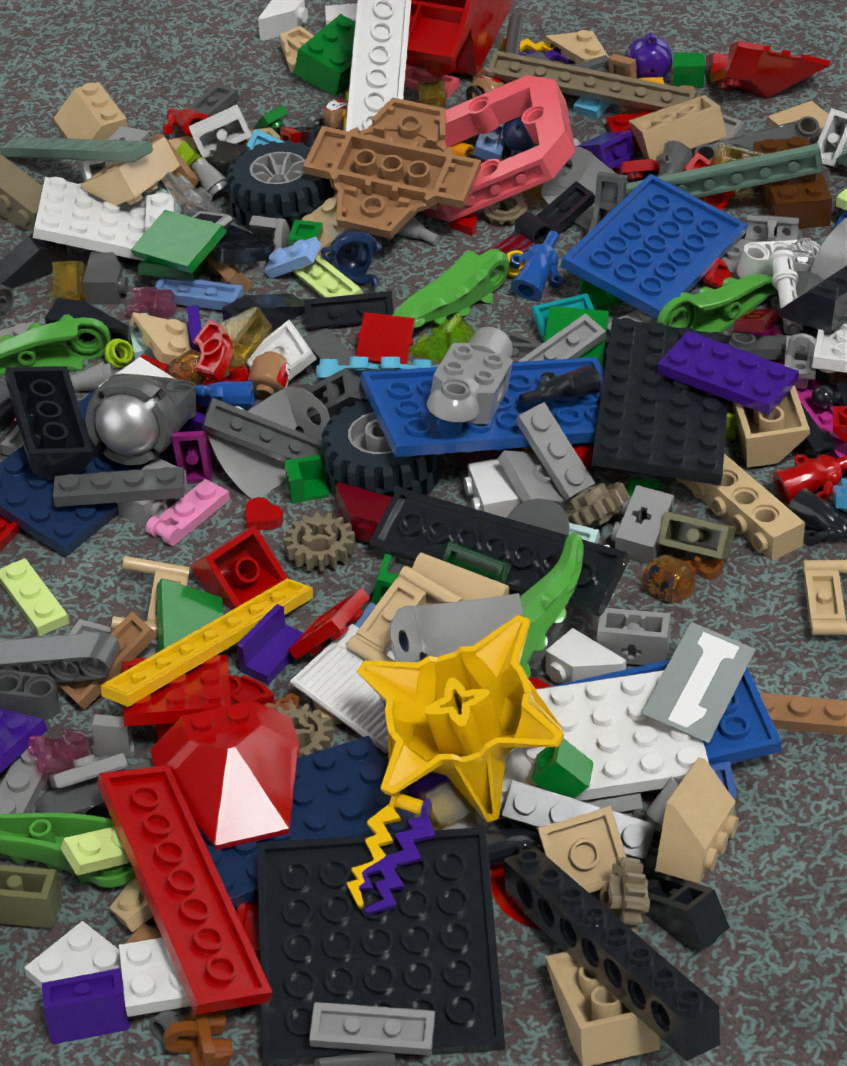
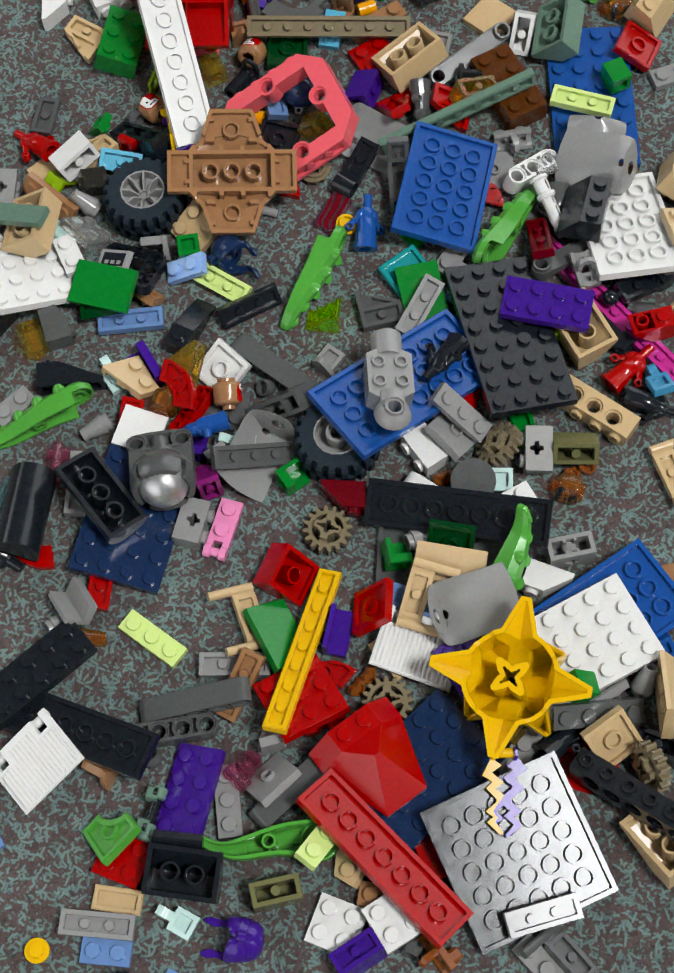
camera: 20 degrees left, 25 degrees up
(118, 486) = (174, 533): dark grey plate -> none
(125, 350) = (106, 400): lime plate -> none
(152, 301) = (101, 341): clear pink plate -> none
(262, 514) = (275, 515): red tile -> none
(330, 366) = (304, 376): medium azure plant -> none
(385, 337) = (288, 327): red piece -> none
(699, 682) = (632, 583): light grey sticker -> none

